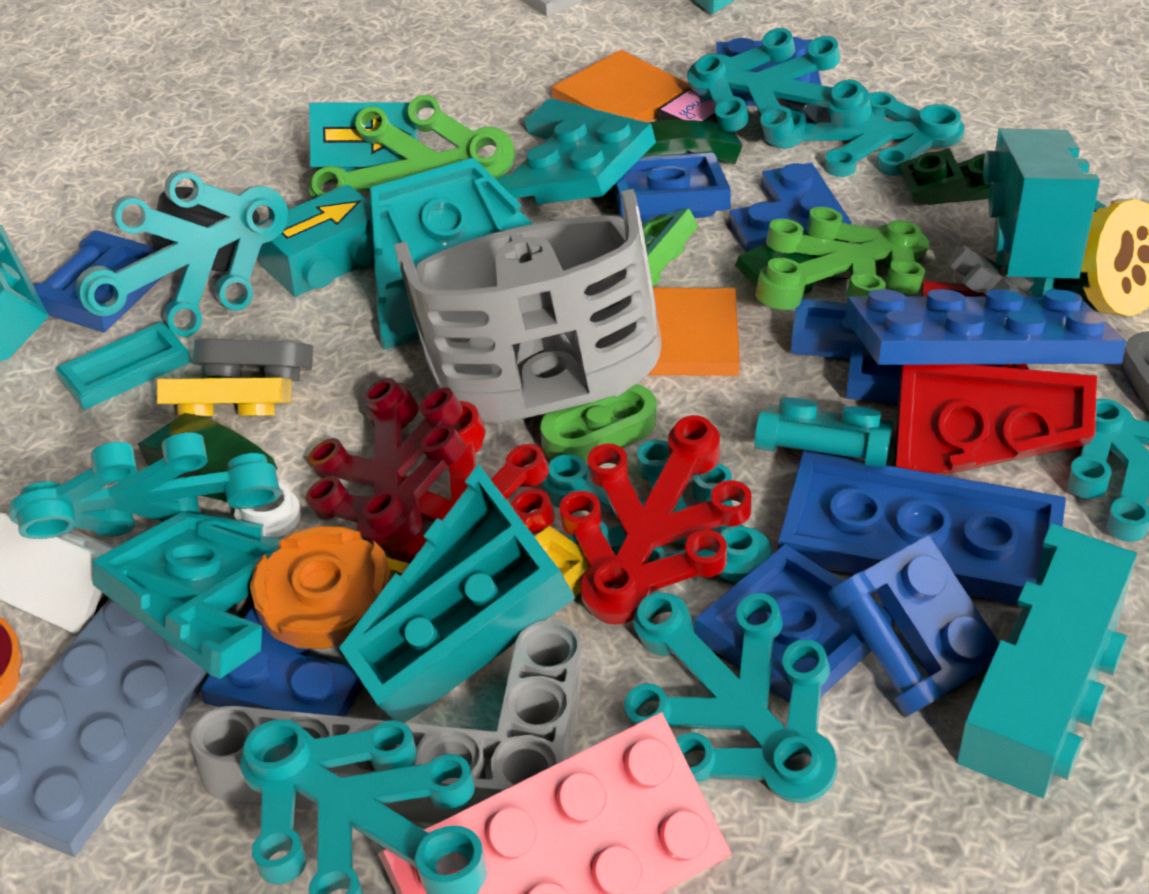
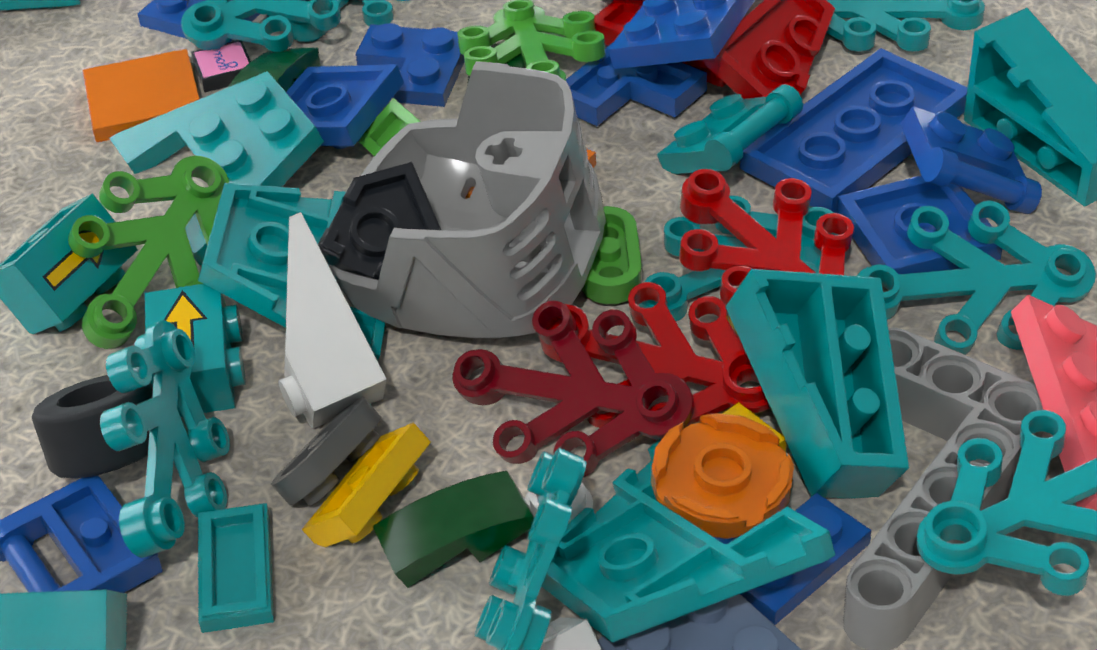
camera: 60 degrees left, 0 degrees up
(351, 284) = (324, 346): none -> white slope
(466, 253) = (370, 213): none -> black plate

